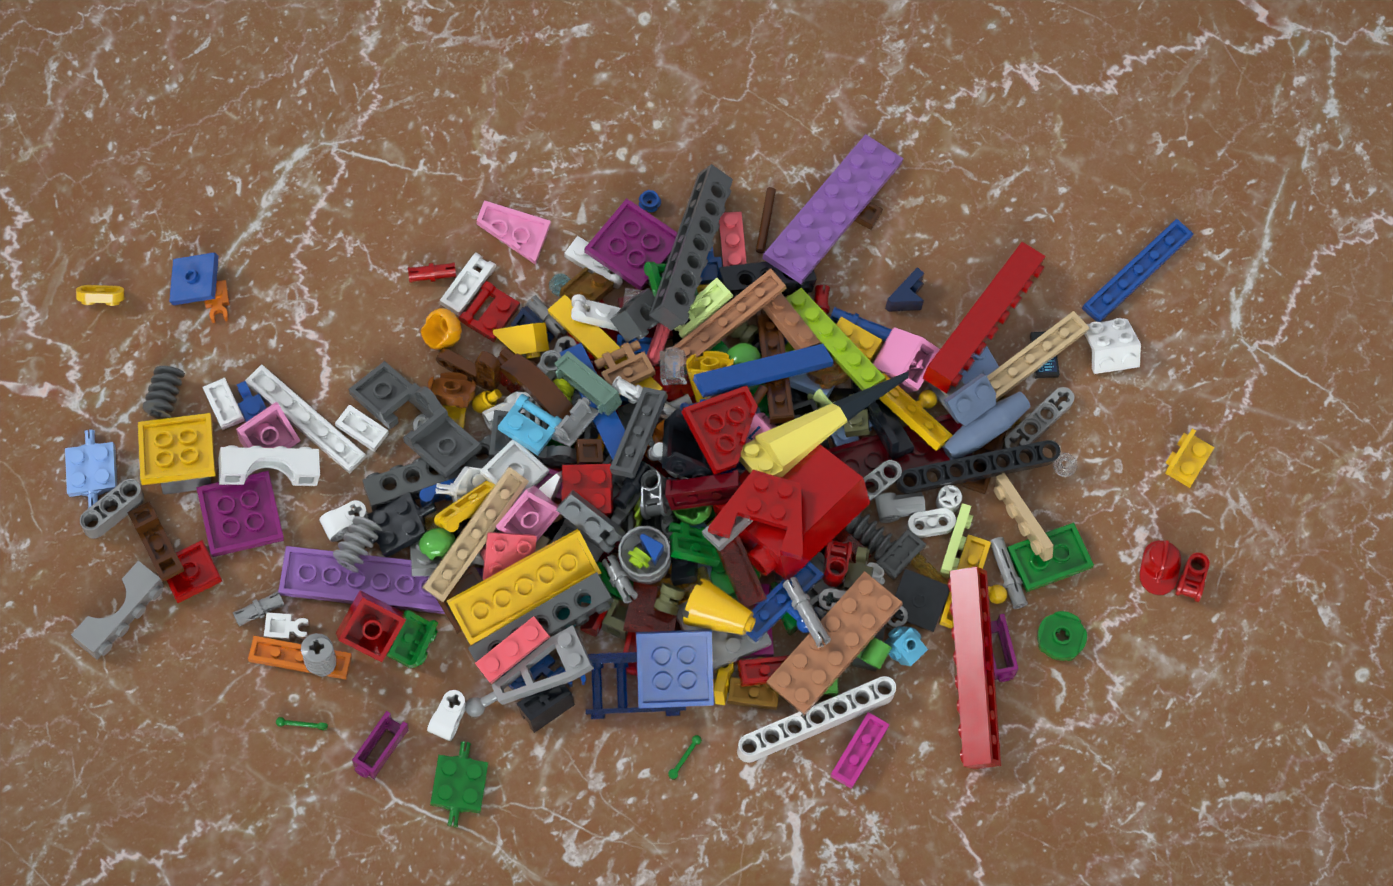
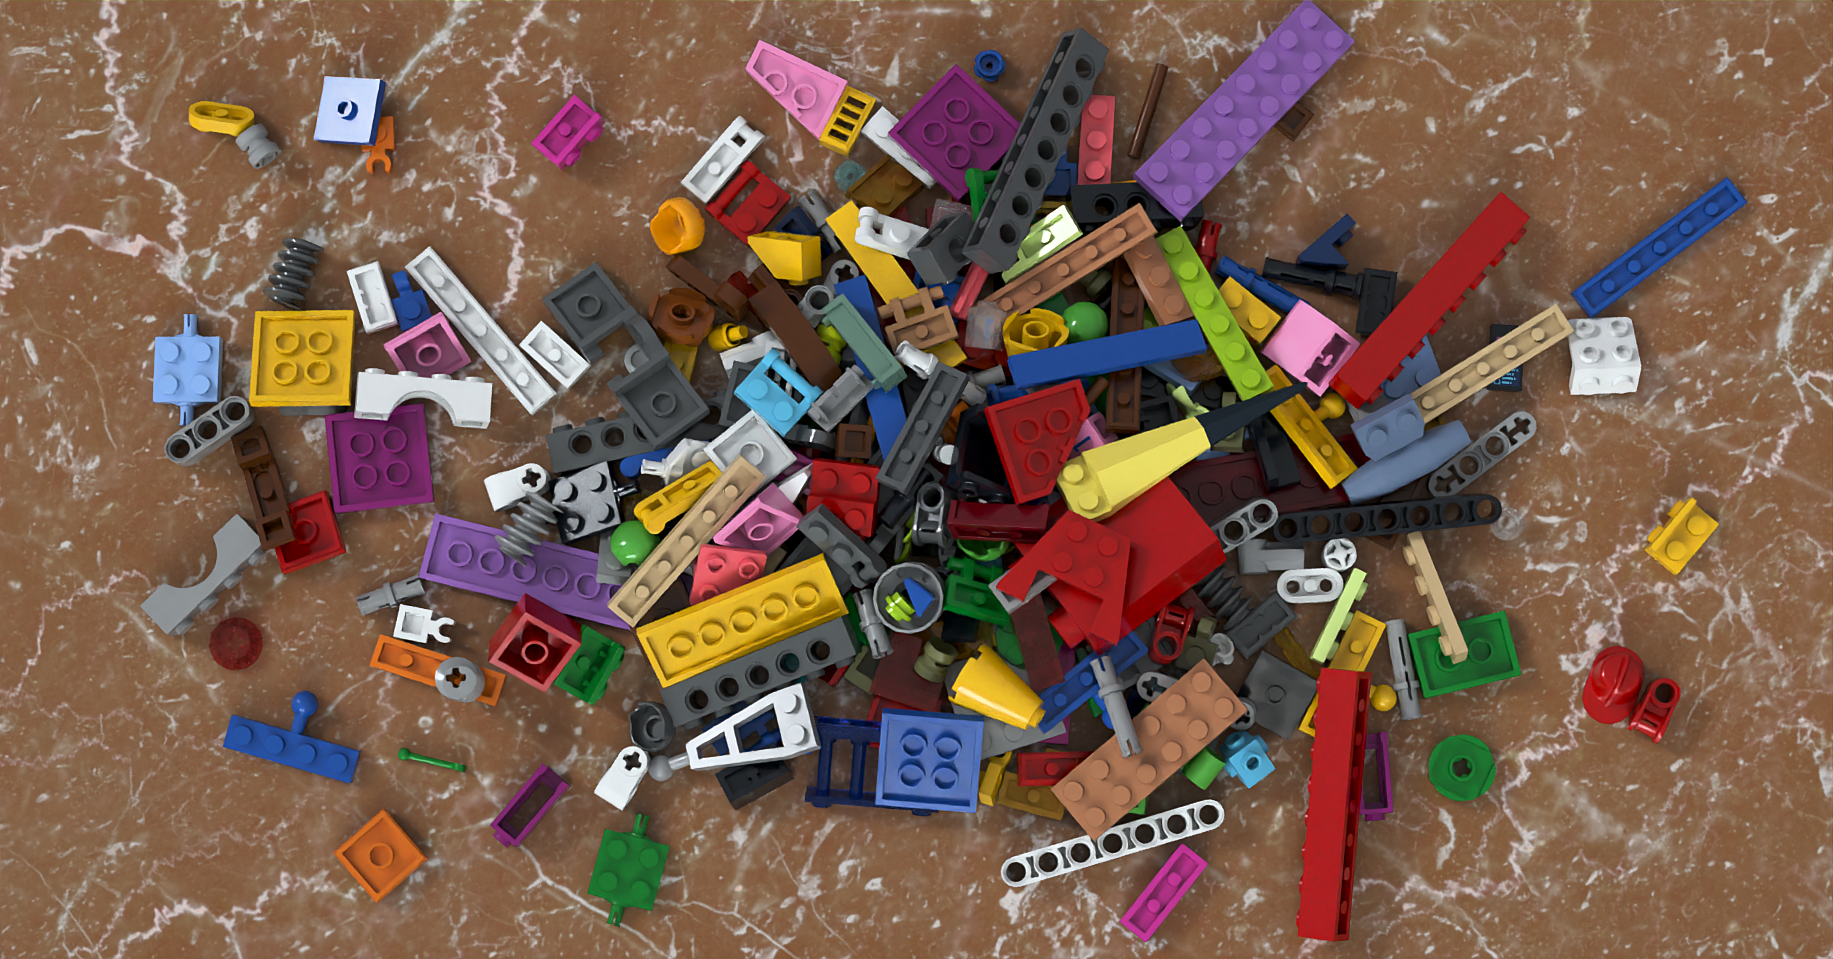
camera: 15 degrees right, 15 degrees up
(129, 310) = (258, 147): none -> light grey wheel
(154, 663) = (246, 654): none -> clear red gear
(195, 726) = (293, 746): none -> blue plate
(270, 796) = (380, 855): none -> orange plate
(354, 277) = (569, 133): none -> dark pink bracket
(432, 272) = (675, 137): red pin -> none
(464, 676) = (651, 726): none -> dark grey hair
(512, 650) = (717, 704): coral plate -> none
(548, 264) = (836, 144): none -> yellow slope
(673, 773) = (912, 890): green hinge -> none
(911, 316) = (1328, 280): none -> black pin
(945, 322) = (1375, 299): none -> black plate

